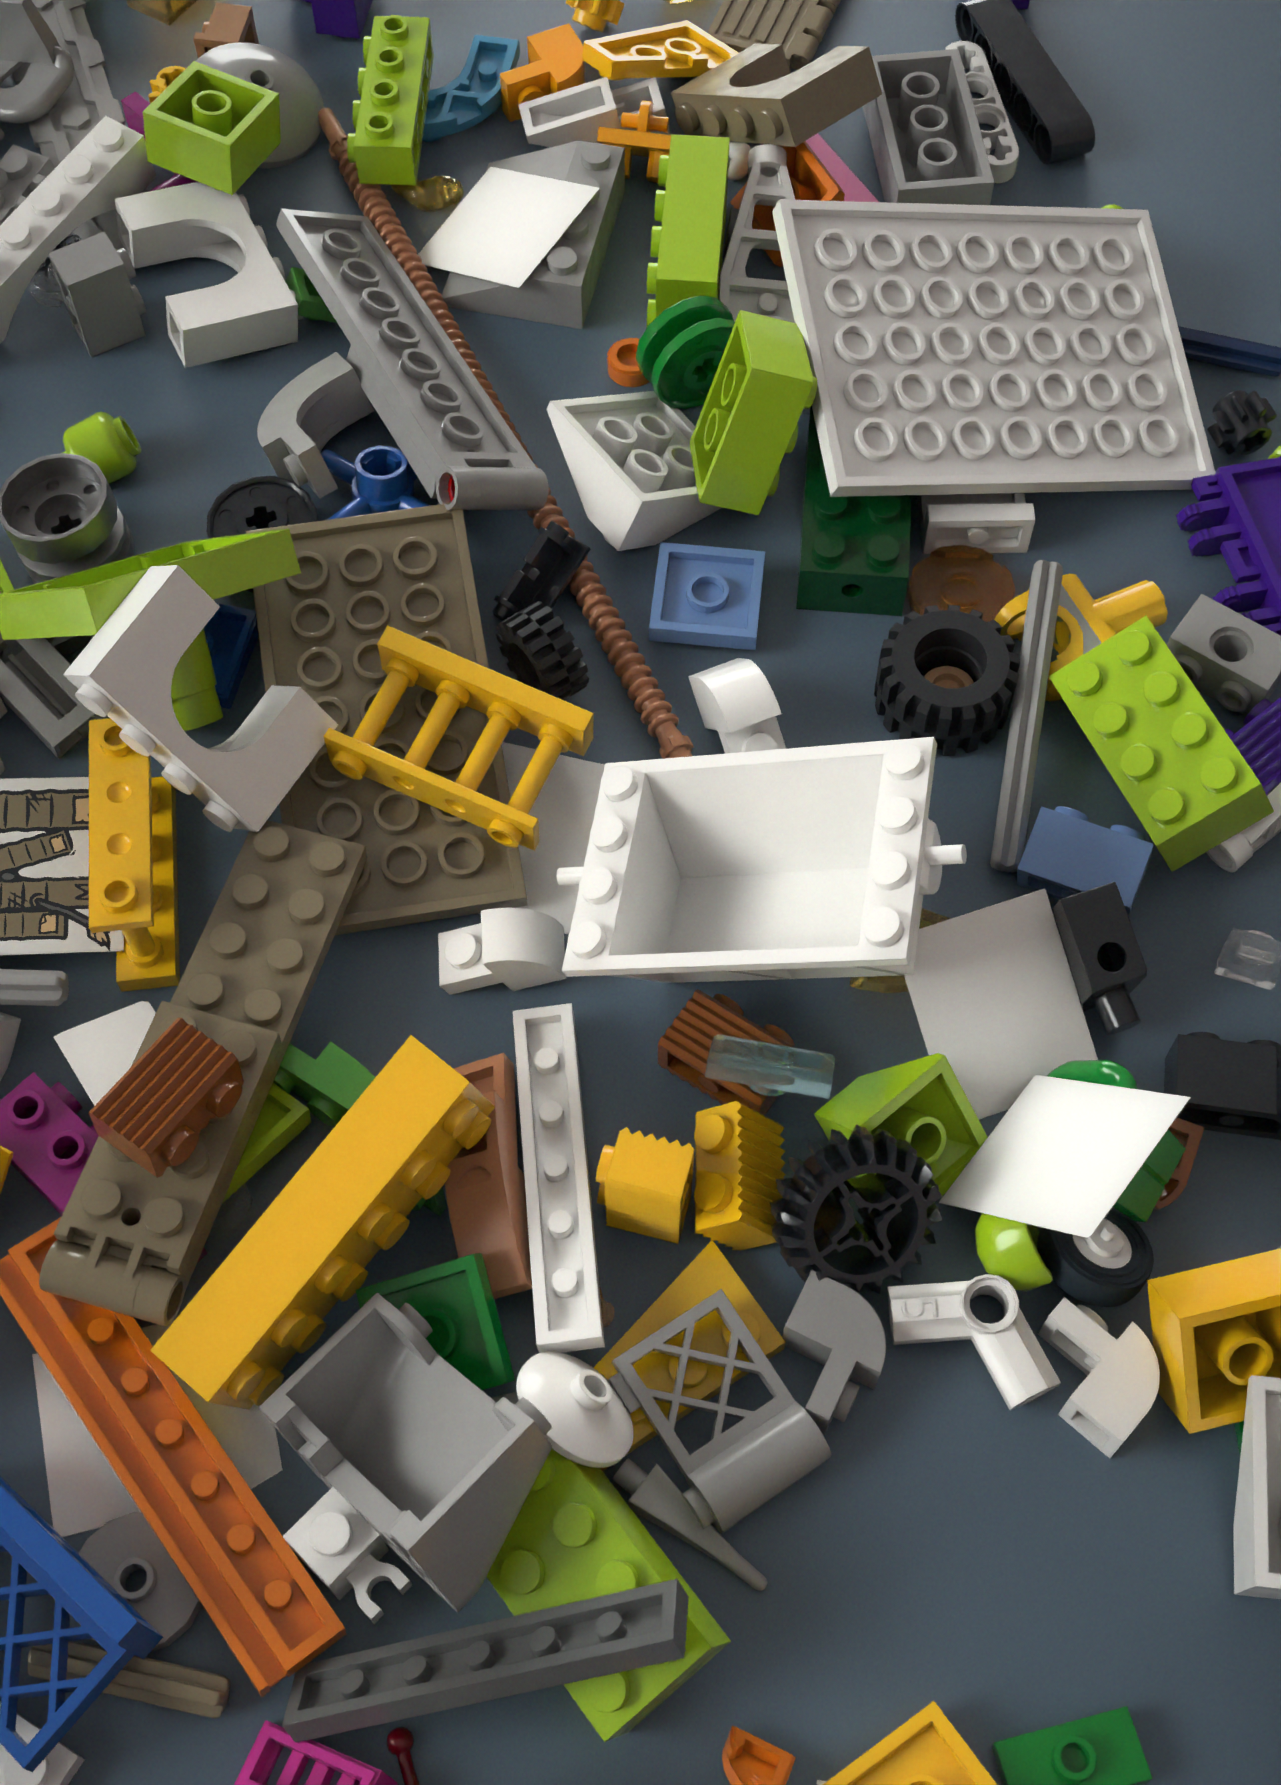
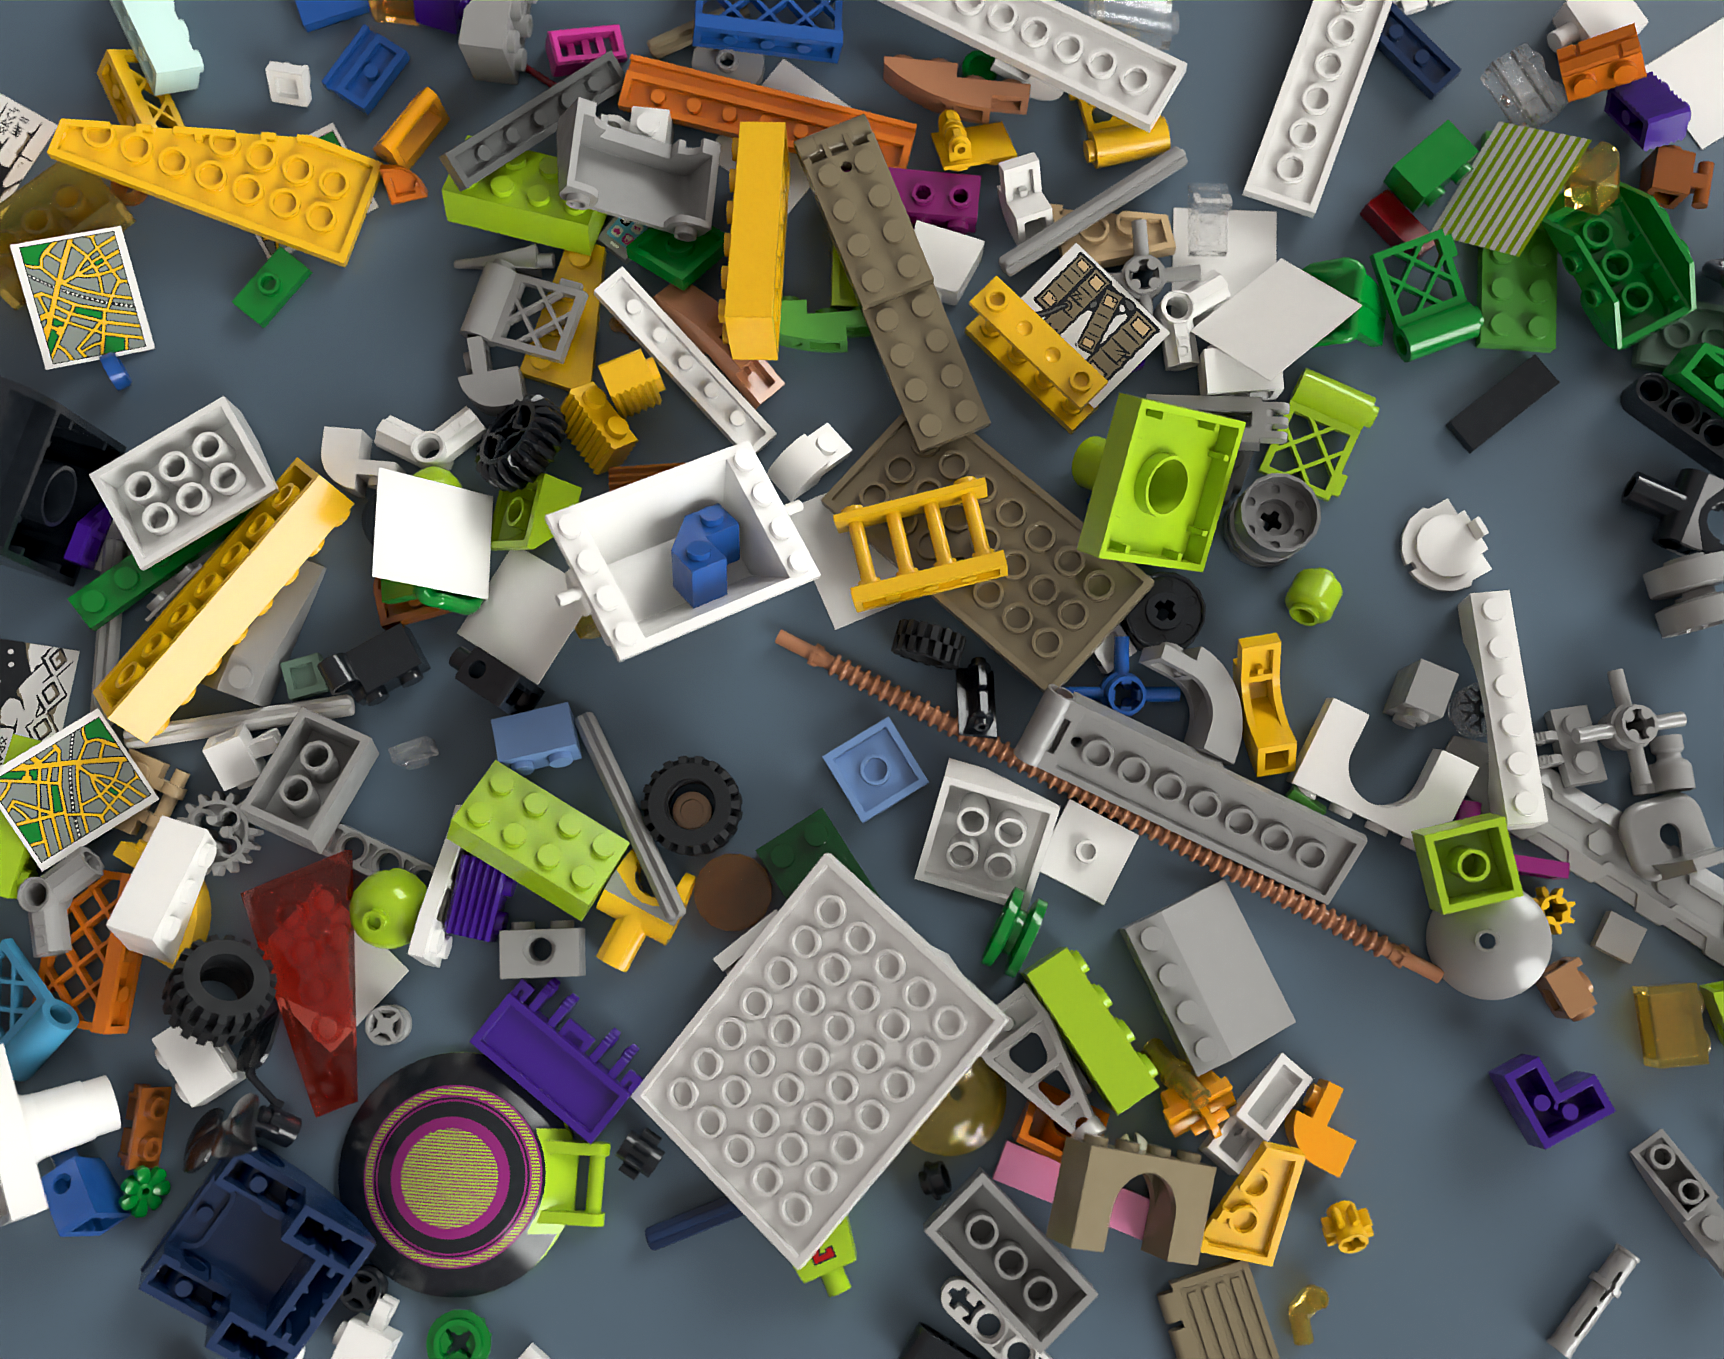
camera: 145 degrees right, 20 degrees up
(129, 678) = (1012, 422): white arch -> none
(141, 54) = (1618, 937): none -> light grey tile
(169, 1098) = (870, 216): dark orange brick -> none
(272, 360) = (1265, 724): none -> yellow arch
(392, 101) = (1390, 1003): lime brick -> none
(432, 193) = (1308, 959): clear yellow arm -> none
(474, 92) = (1359, 1055): dark azure plate -> none
(506, 226) = (1222, 953): white sticker -> none
(532, 384) = (1087, 851): none -> white plate
(582, 1407) = (591, 241): white dish -> none
(623, 364) = (1062, 920): orange tile -> none
(640, 169) = (1176, 1074): none -> clear yellow pin
(739, 706) = (793, 695): white brick -> none
(747, 866) = (702, 552): none -> blue brick
(751, 413) = (926, 885): lime brick -> none
(770, 1067) = (610, 473): clear light blue plate -> none

